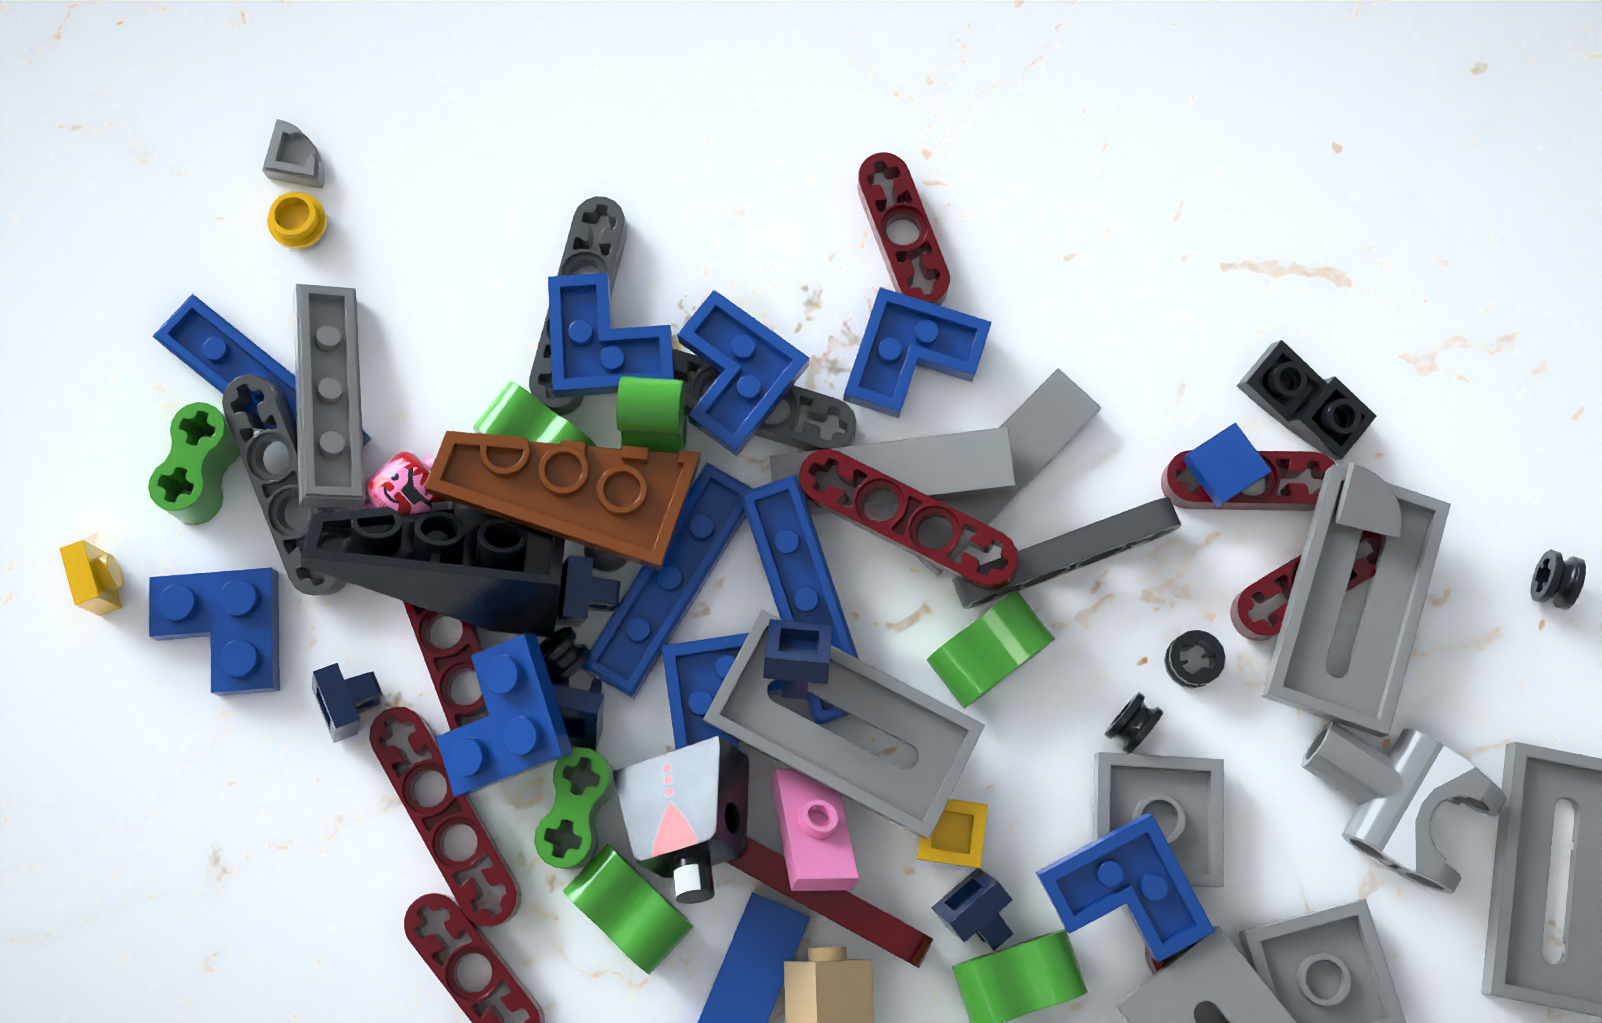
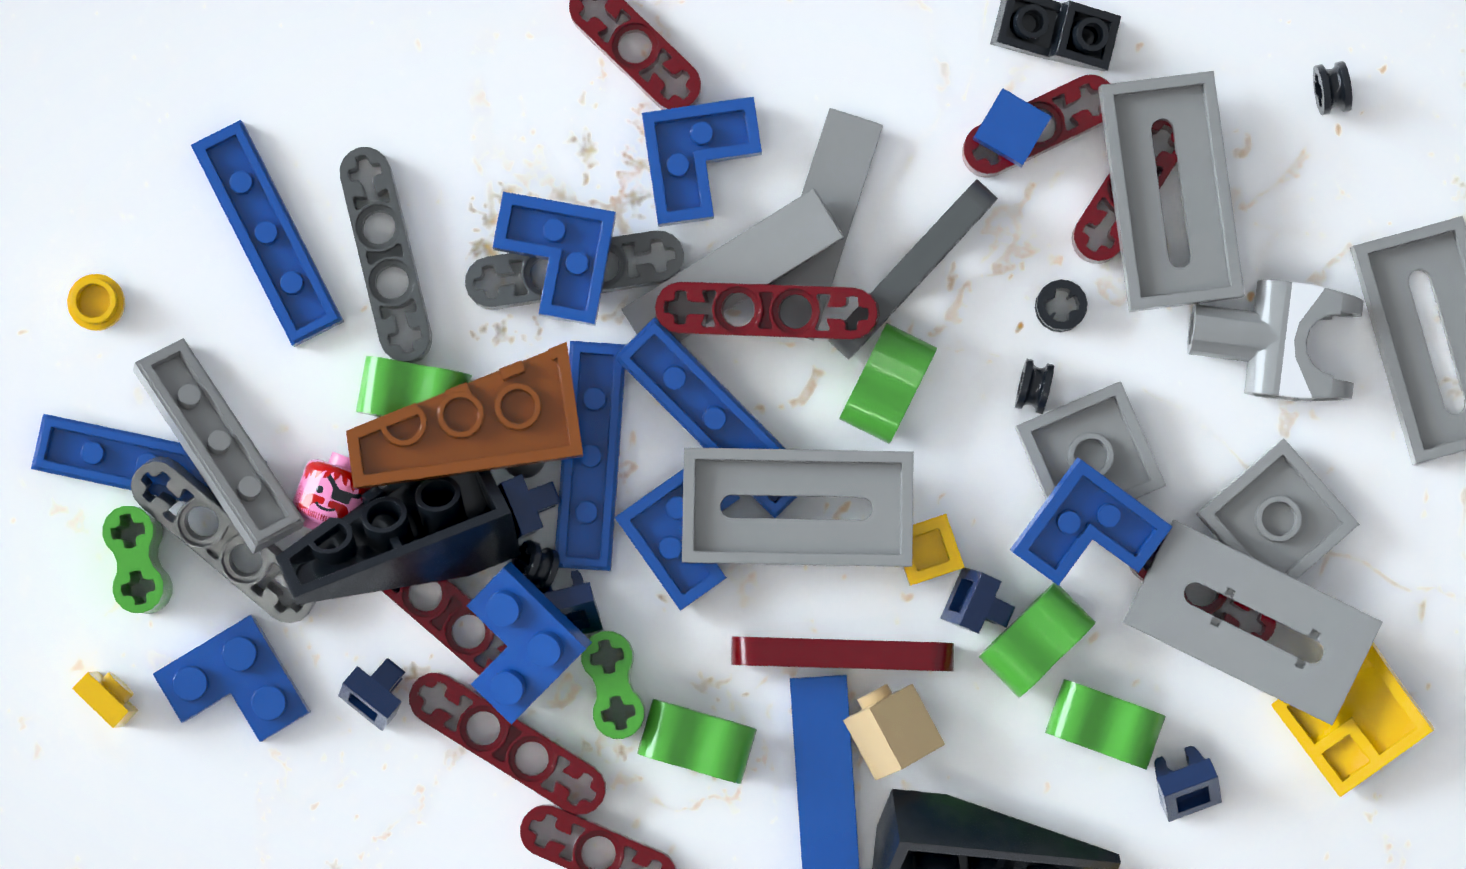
camera: 25 degrees left, 10 degrees up
(293, 157) = (57, 244): light grey tile -> none
(483, 237) = (267, 233): none -> blue tile
(586, 350) = (428, 300): blue plate -> none
(652, 413) = (508, 330): bright green axle -> none
(687, 813) = (707, 643): torso -> none
(797, 655) = (734, 473): dark blue tile -> none
(813, 834) = (816, 607): bright pink plate -> none
(1368, 503) = (1143, 107): light grey tile -> none

